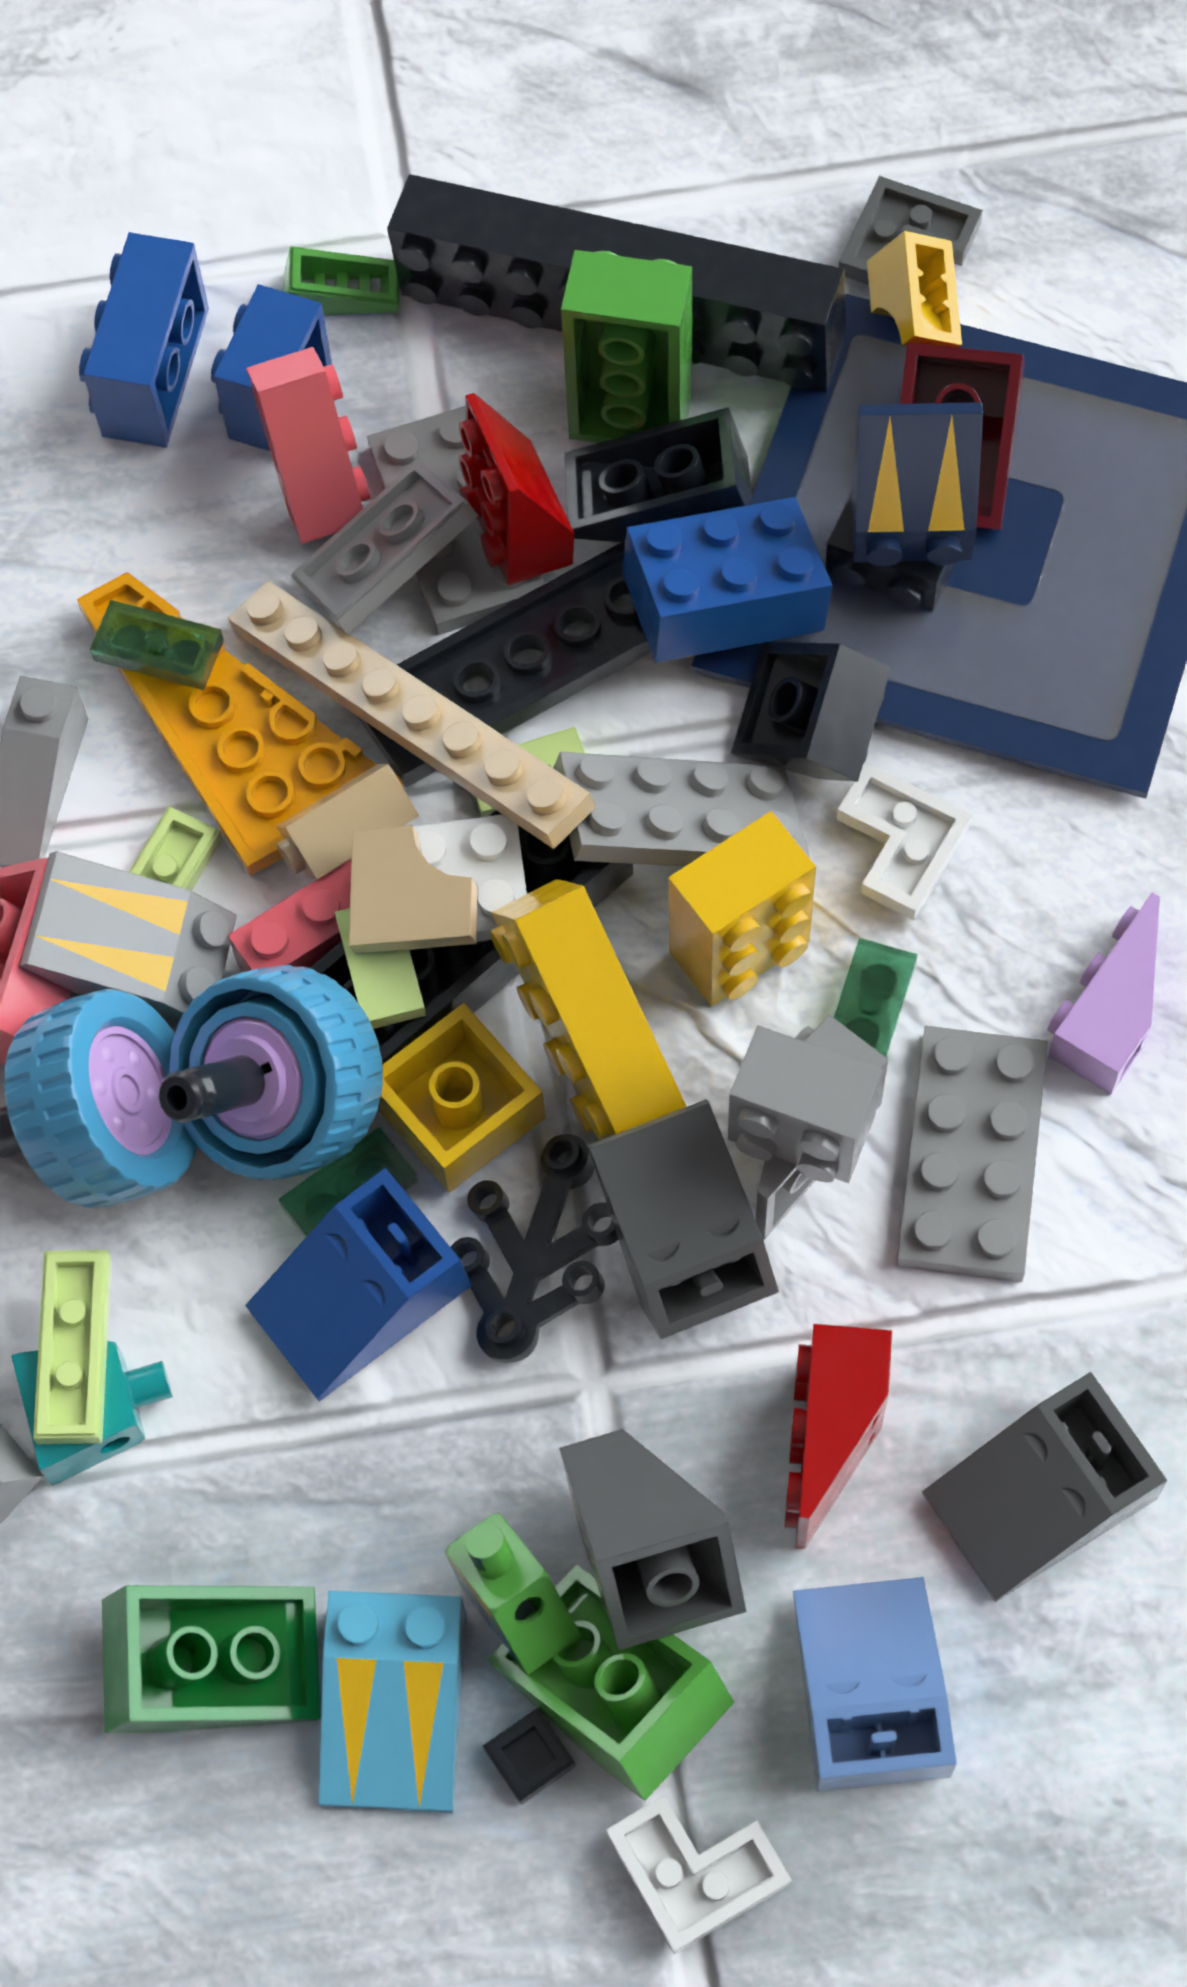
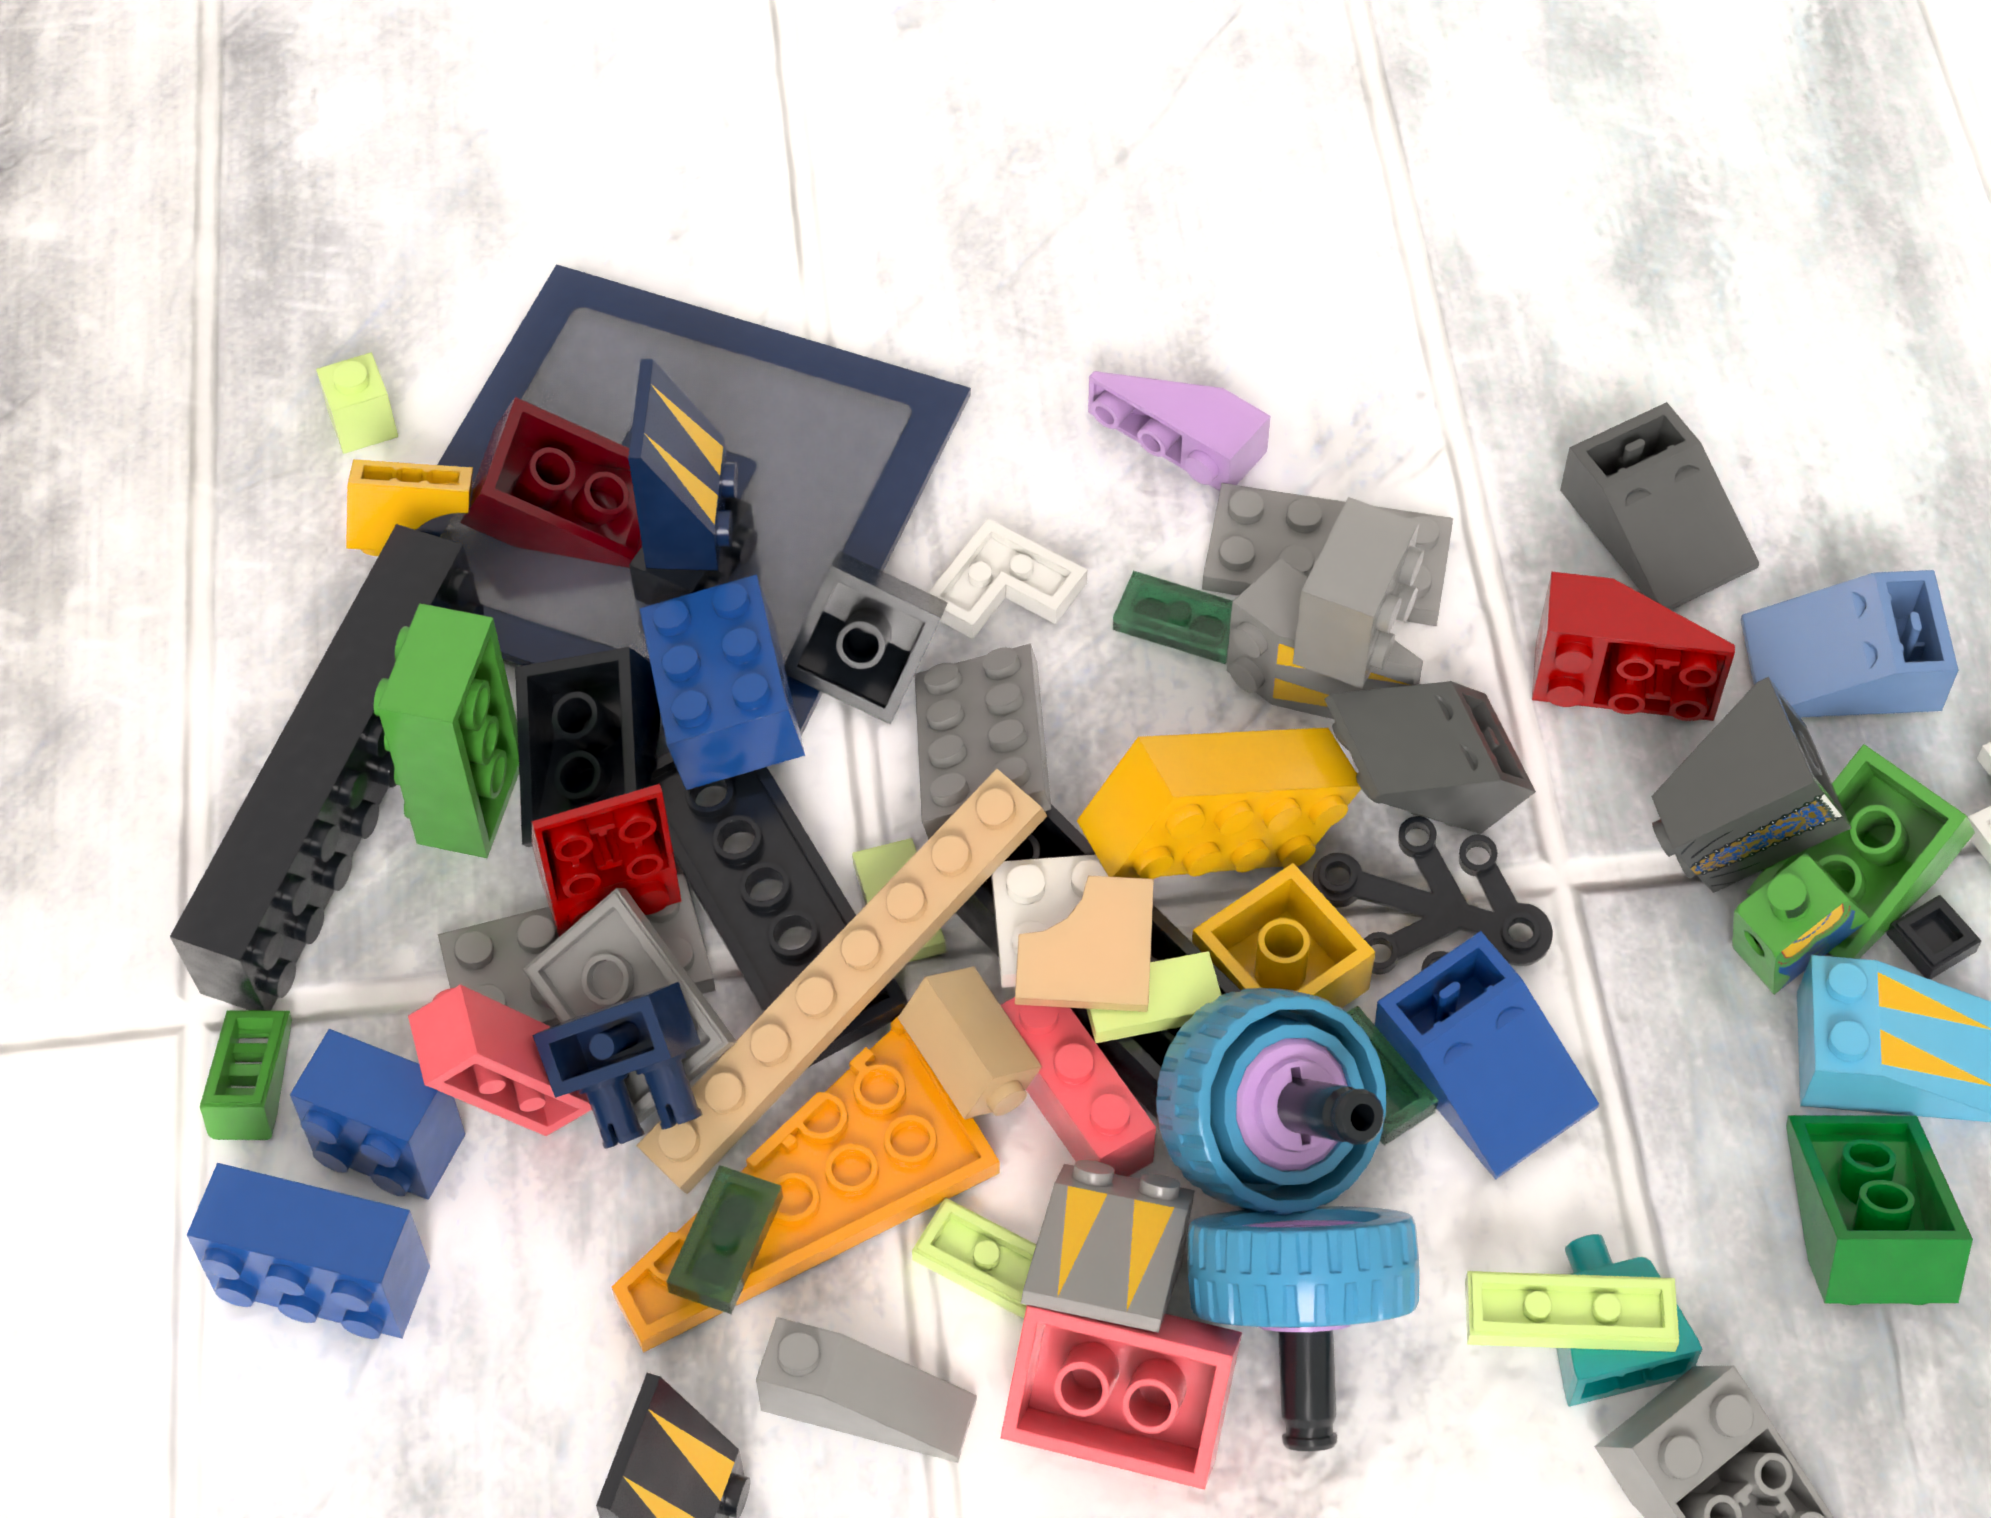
camera: 90 degrees left, 10 degrees down
(318, 537) = (607, 1044): none -> dark blue brick
(741, 909) = (1102, 672): yellow brick -> none
(902, 208) = (287, 536): dark grey plate -> none
(1056, 253) = (357, 402): none -> yellowish green brick

